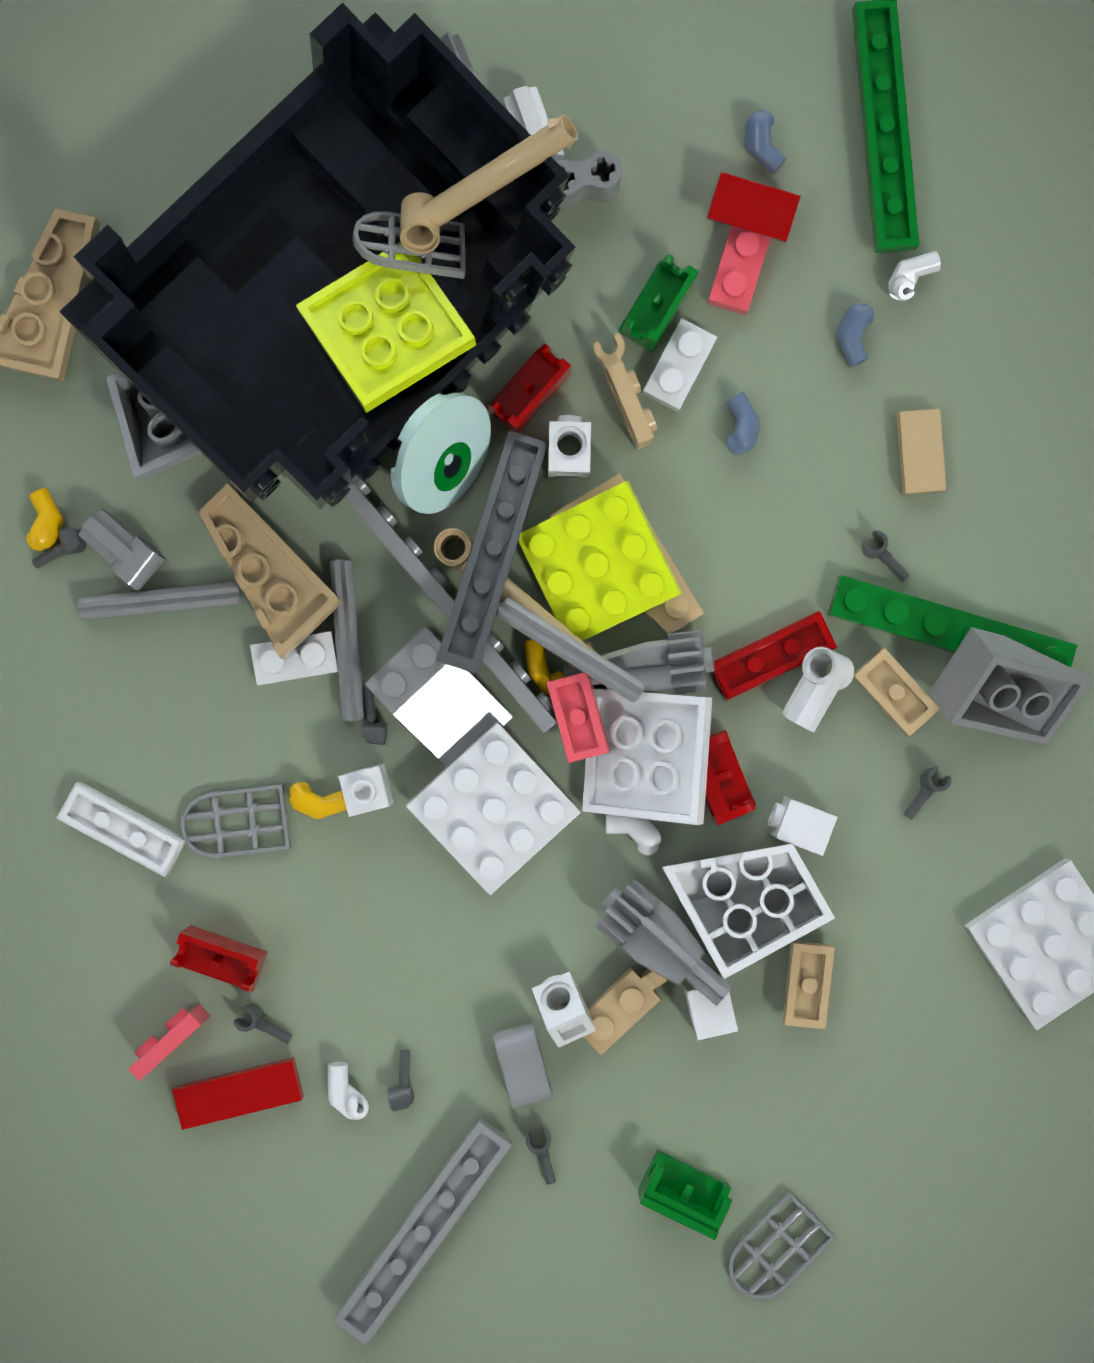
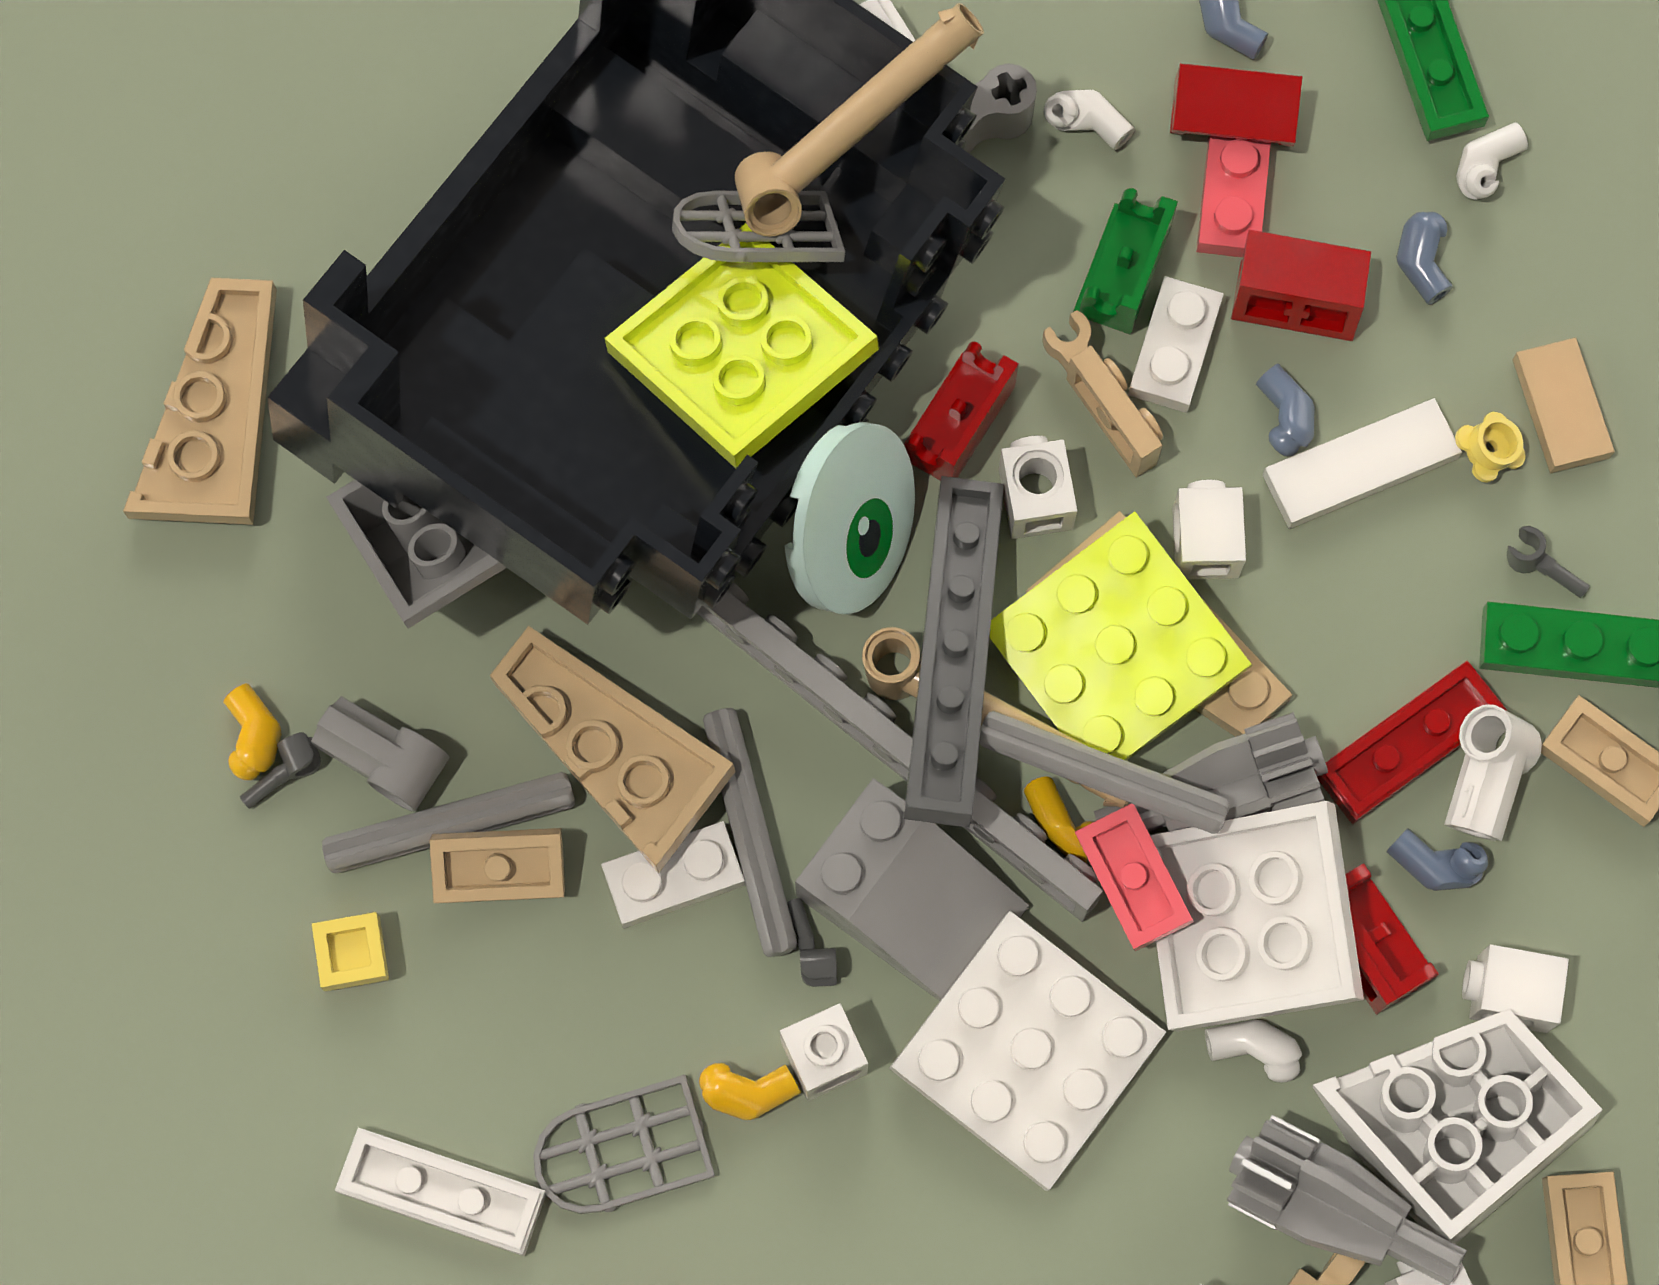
camera: 10 degrees left, 15 degrees down
(85, 672) = (350, 951): none -> light yellow plate
(184, 635) = (497, 865): none -> tan plate
(654, 192) = (1088, 111): none -> white arm
(674, 496) = (1209, 530): none -> white brick
(769, 340) = (1301, 285): none -> red hinge
(773, 739) = (1441, 868): none -> sand blue arm
(782, 467) = (1361, 463): none -> white tile
(878, 472) = (1504, 438): none -> light yellow plate

